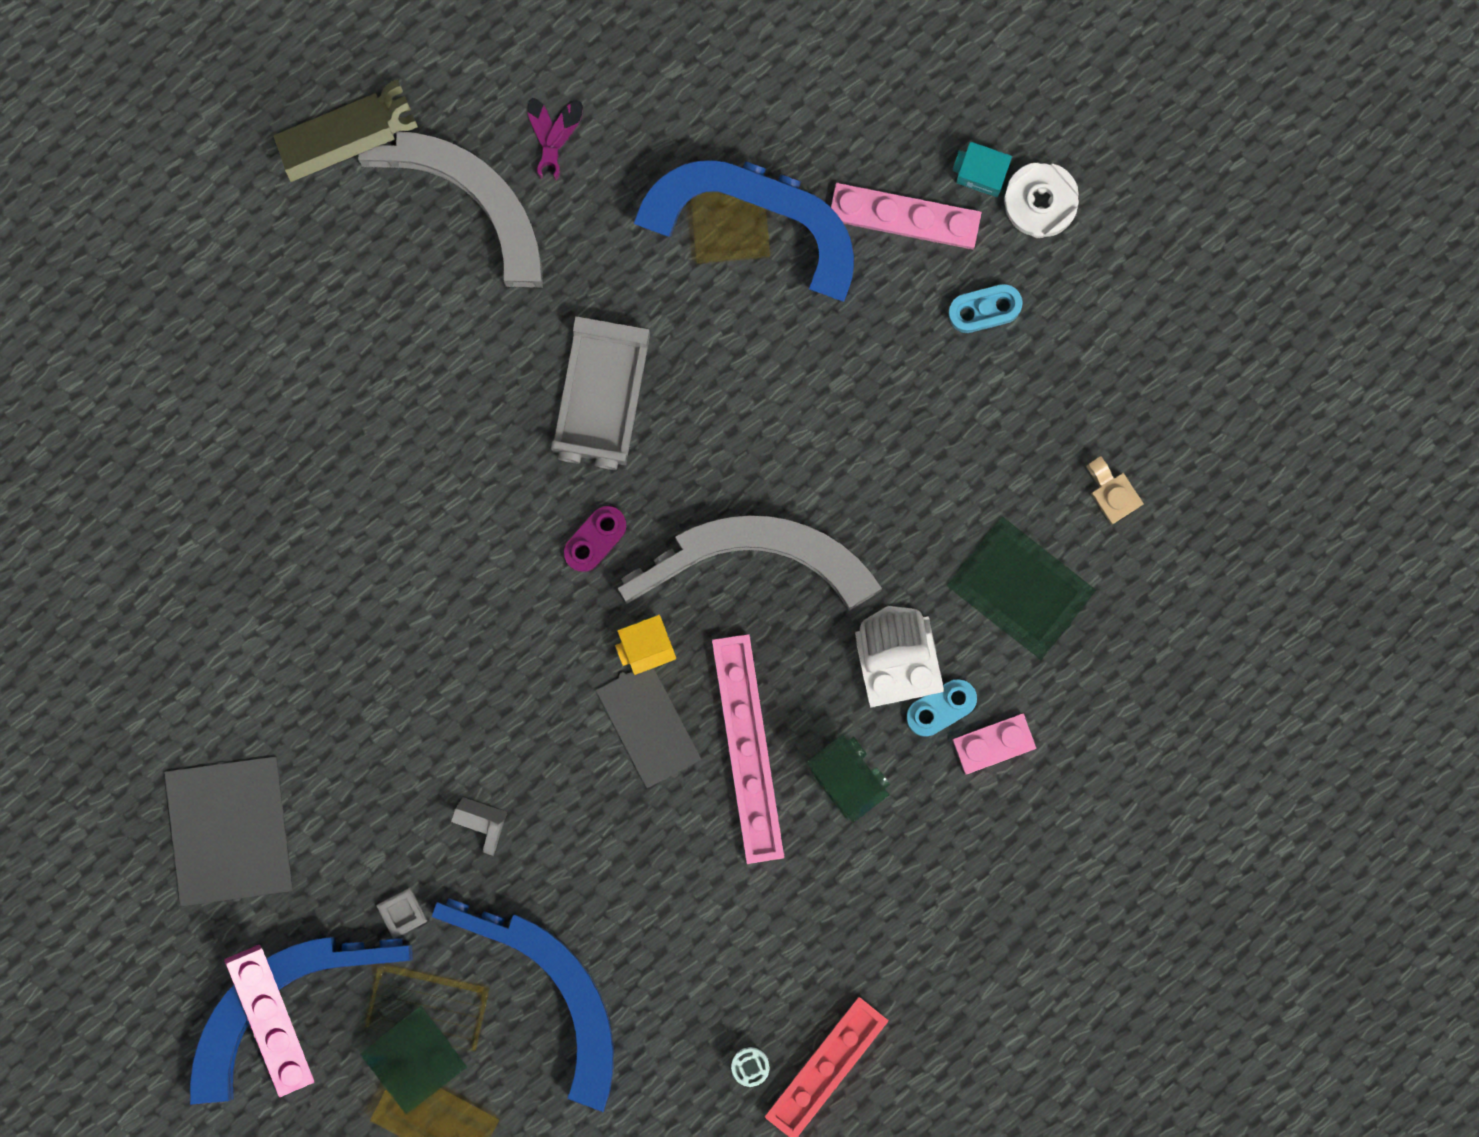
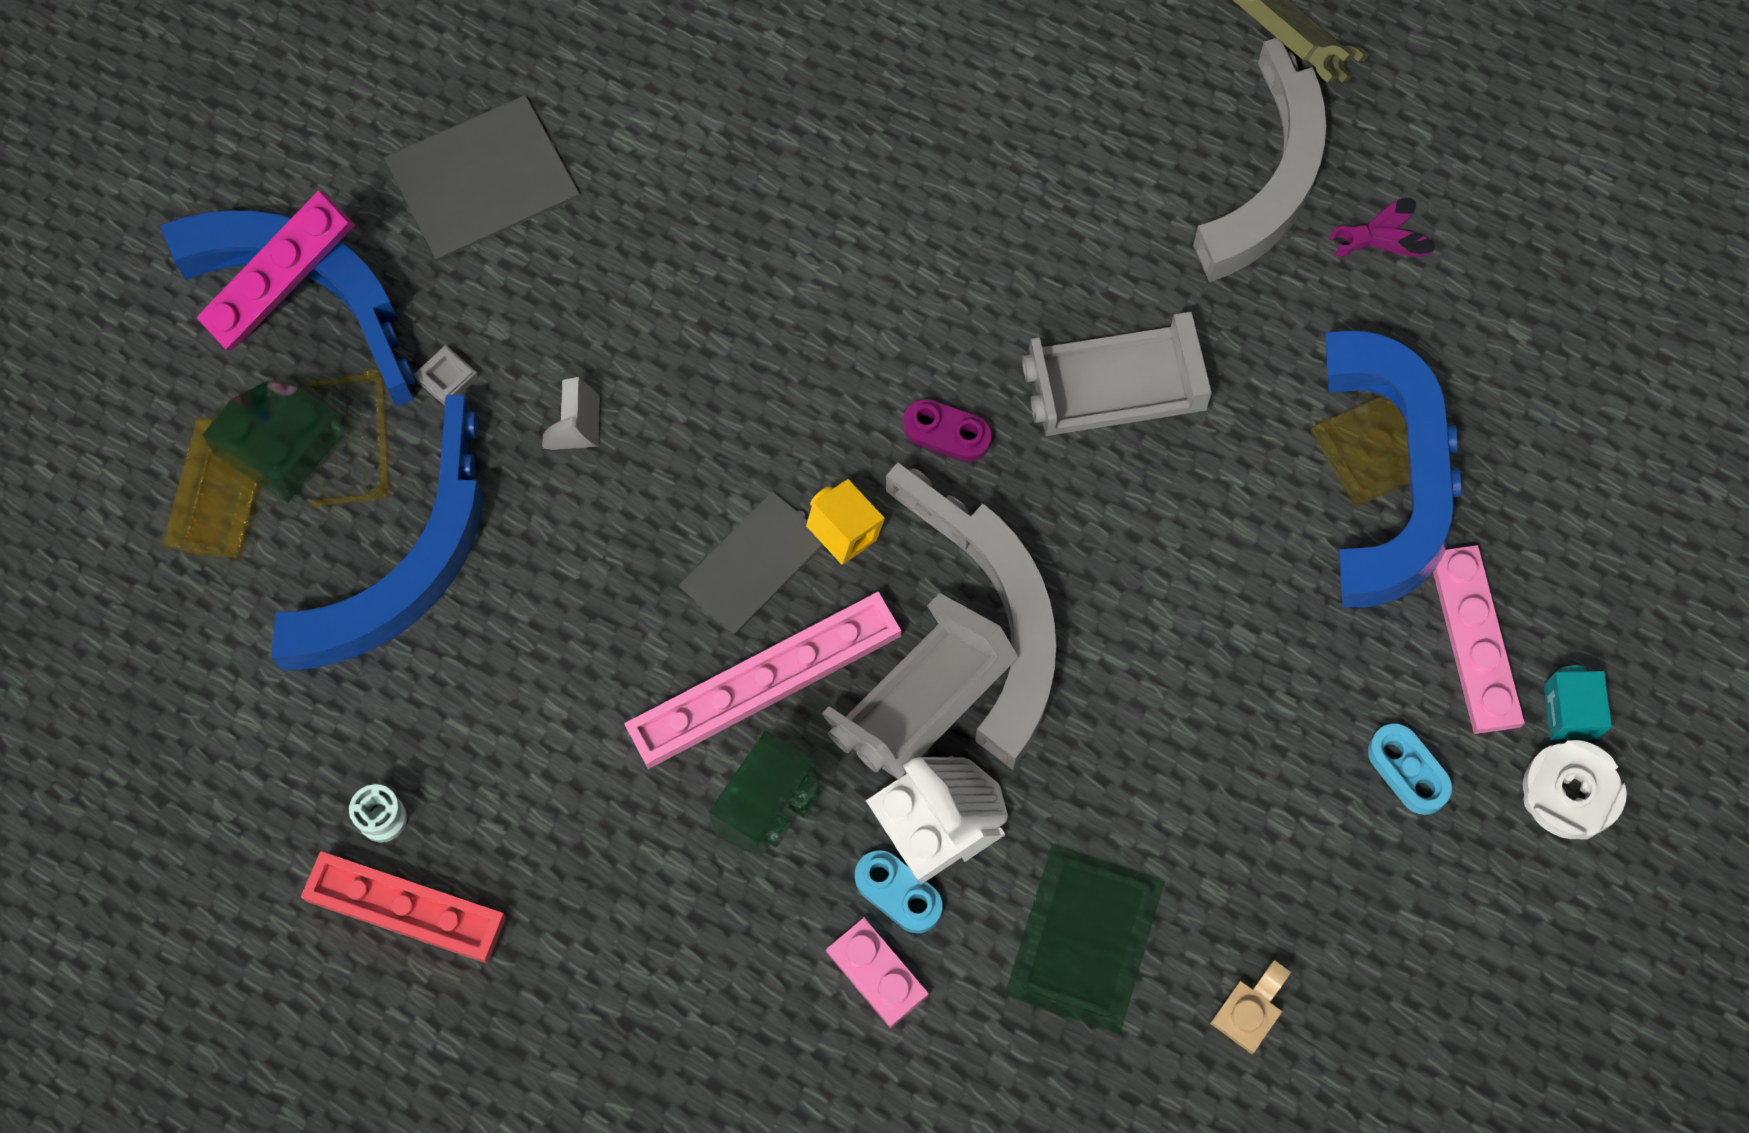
camera: 70 degrees right, 15 degrees down
(805, 635) = (925, 689): none -> light grey panel

